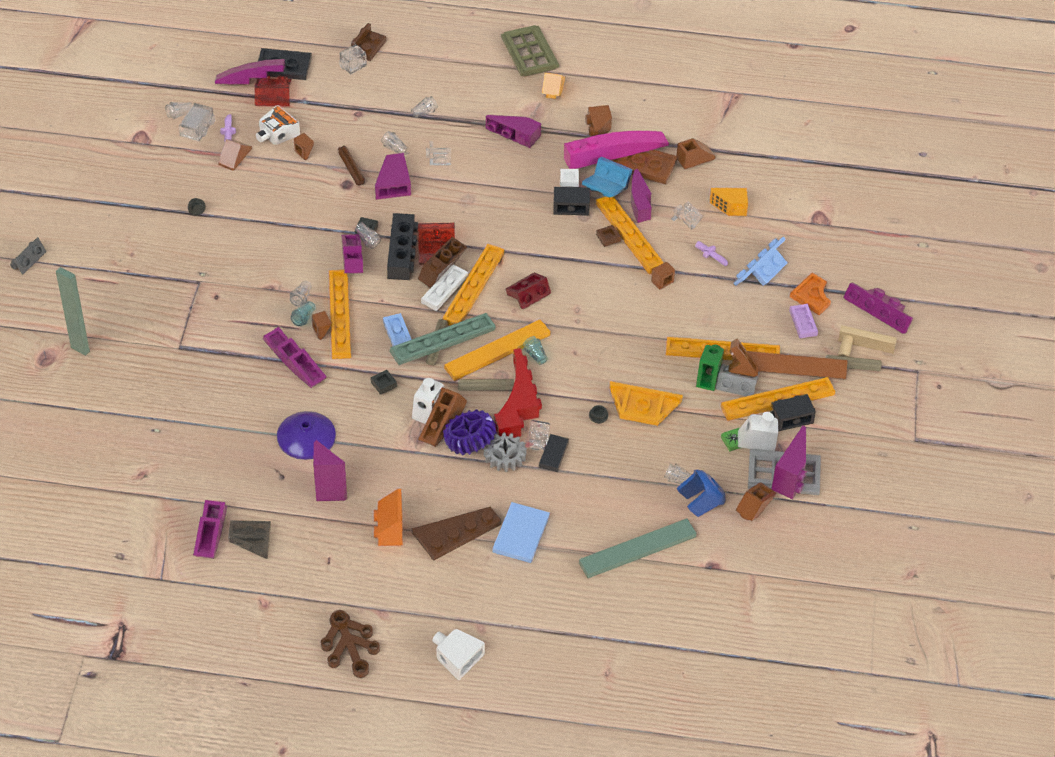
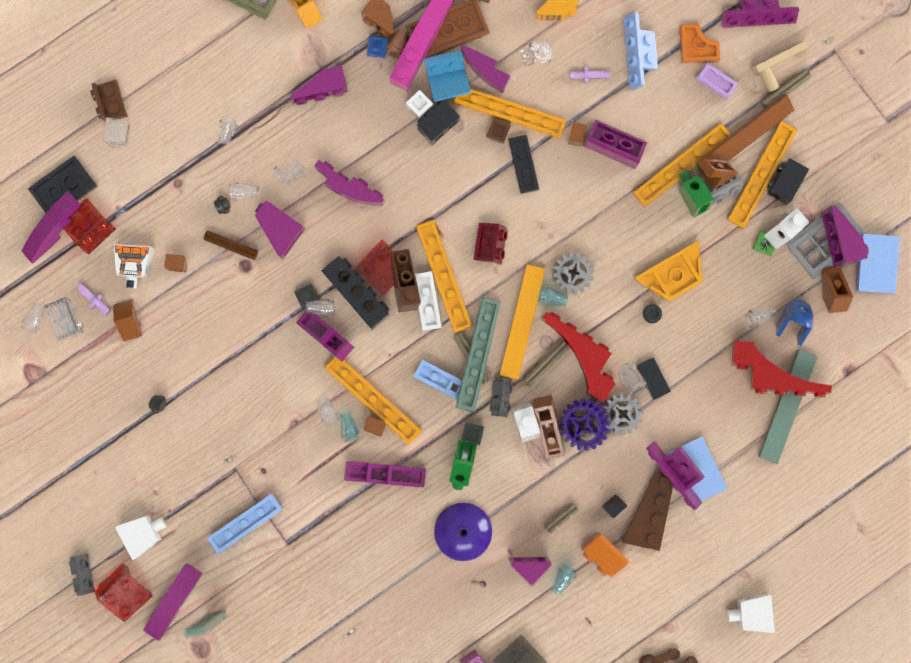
camera: 45 degrees left, 35 degrees up
(38, 286) = (122, 593): none -> clear red bracket
(54, 315) = (172, 601): none -> magenta slope
(93, 263) = (140, 535): none -> white torso
(166, 311) = (244, 523): none -> light blue plate
(341, 516) = (564, 578): none -> clear light blue cone
(353, 387) = (462, 468): none -> green torso
(372, 140) = (222, 205): none -> pearl dark grey plate
(385, 480) = (561, 517): none -> dark tan axle
(432, 502) = (614, 506): none -> black slope
(437, 373) = (502, 388): none -> dark grey hinge
(467, 191) = (354, 190): none -> magenta slope
(506, 513) = (680, 471): none -> magenta bracket
(567, 347) = (581, 274): none -> light grey gear
(577, 134) = (377, 47): none -> blue tile
(605, 267) = (523, 164): none -> black tile
(643, 514) = (769, 377): none -> red arch
(683, 301) = (615, 144): none -> magenta slope
(809, 512) = (879, 270): none -> light blue tile

